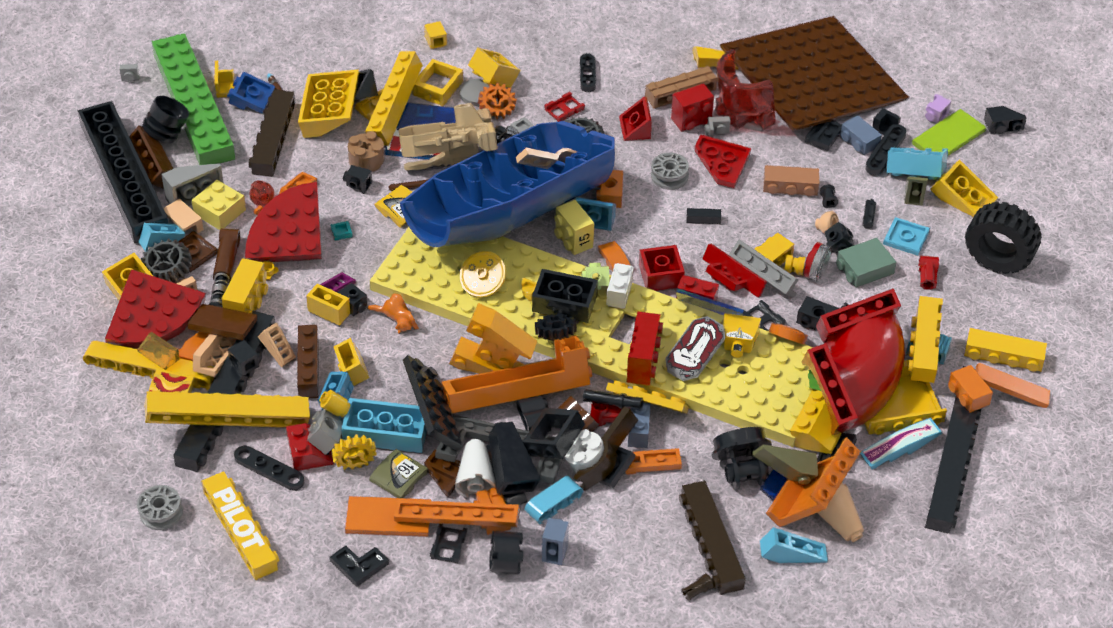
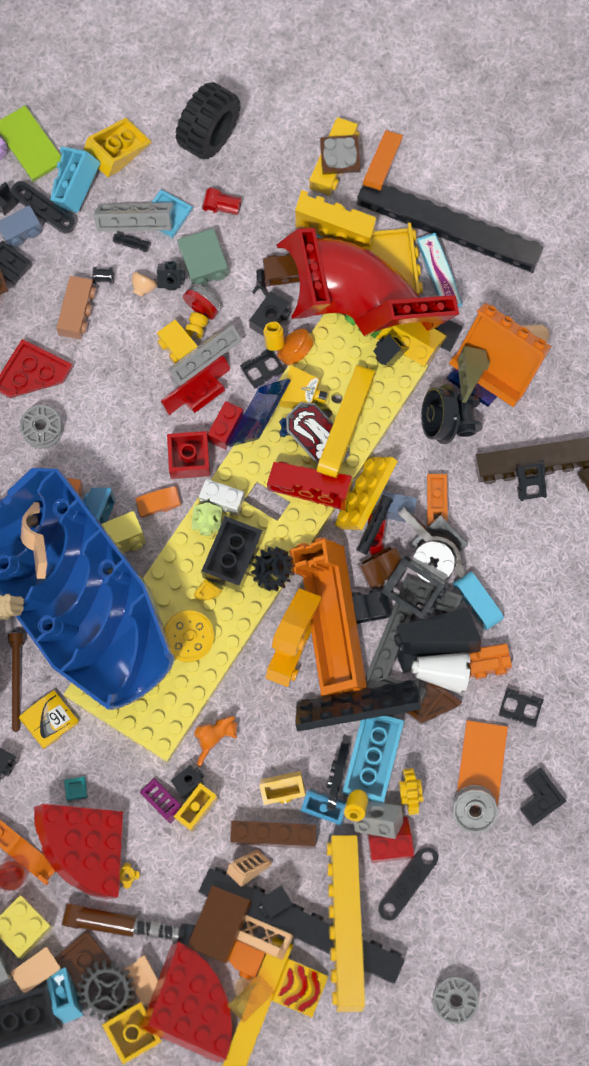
camera: 80 degrees left, 25 degrees up
(240, 526) = (485, 916): yellow brick -> none
(246, 287) = (171, 898): yellow brick -> none
(342, 505) = (475, 821): none -> light grey wheel
(355, 389) = (335, 781): none -> black plate
(398, 474) = (431, 750): olive slope -> none
(457, 513) = (499, 694): orange plate -> none
(505, 552) = (546, 652): black brick -> none
(555, 541) = (538, 603): sand blue brick -> none
(689, 536) = (524, 482): none -> black piece
(703, 216) = (111, 403): black piece -> none
(711, 359) = (346, 421): none -> yellow beam
(791, 548) = (555, 391): medium azure slope -> none
(793, 312) = (273, 336): none -> yellow brick
(797, 395) = (389, 350): none -> black brick
(893, 208) = (134, 217): none -> light grey fence
(915, 190) = (109, 189): olive slope -> none
(970, 388) = (394, 195): orange brick -> none
(1003, 119) = (18, 87): black slope -> none
(1003, 346) = (340, 154): none -> light grey piece

